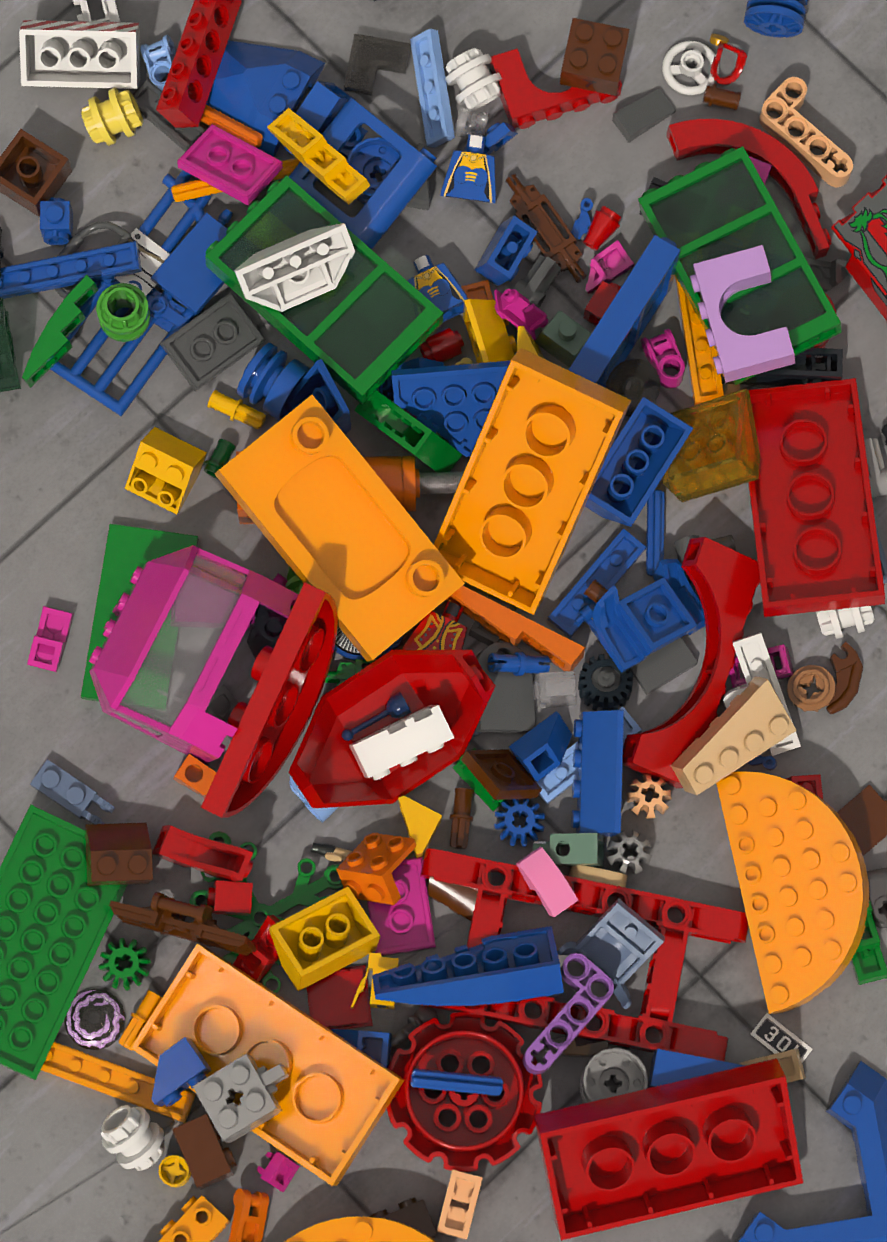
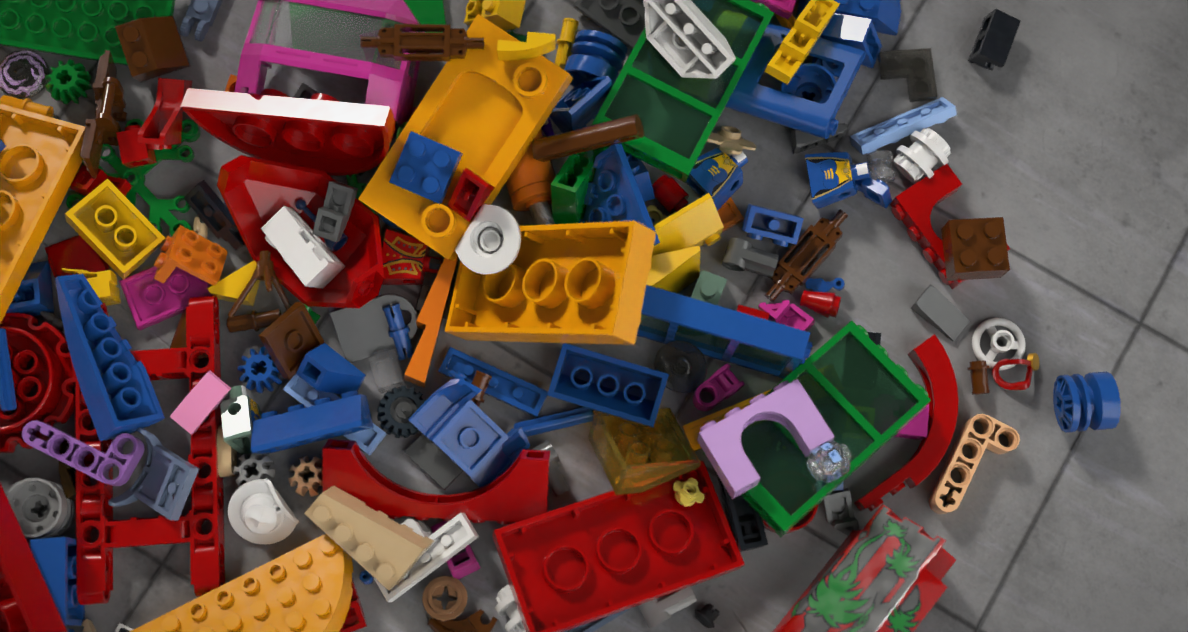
camera: 75 degrees right, 0 degrees up
(226, 565) = (419, 40): none -> reddish brown piece
(276, 421) = (536, 45): none -> yellow slope
(332, 830) = (214, 214): none -> black hinge
(365, 574) = (426, 167): none -> blue plate
(373, 693) = (335, 213): none -> dark grey slope
(378, 401) = (588, 138): none -> reddish brown brick
(408, 262) = (730, 141): none -> tan plate
(410, 535) = (469, 194): none -> red slope
(415, 788) = (266, 273): none -> reddish brown plant
(462, 530) = (490, 241): none -> white hat
(512, 307) = (716, 244): dark pink hinge -> none
(675, 854) = (260, 513): none -> white hat
(767, 414) = (685, 498): none -> light yellow plate
(785, 258) = (829, 461): none -> clear head

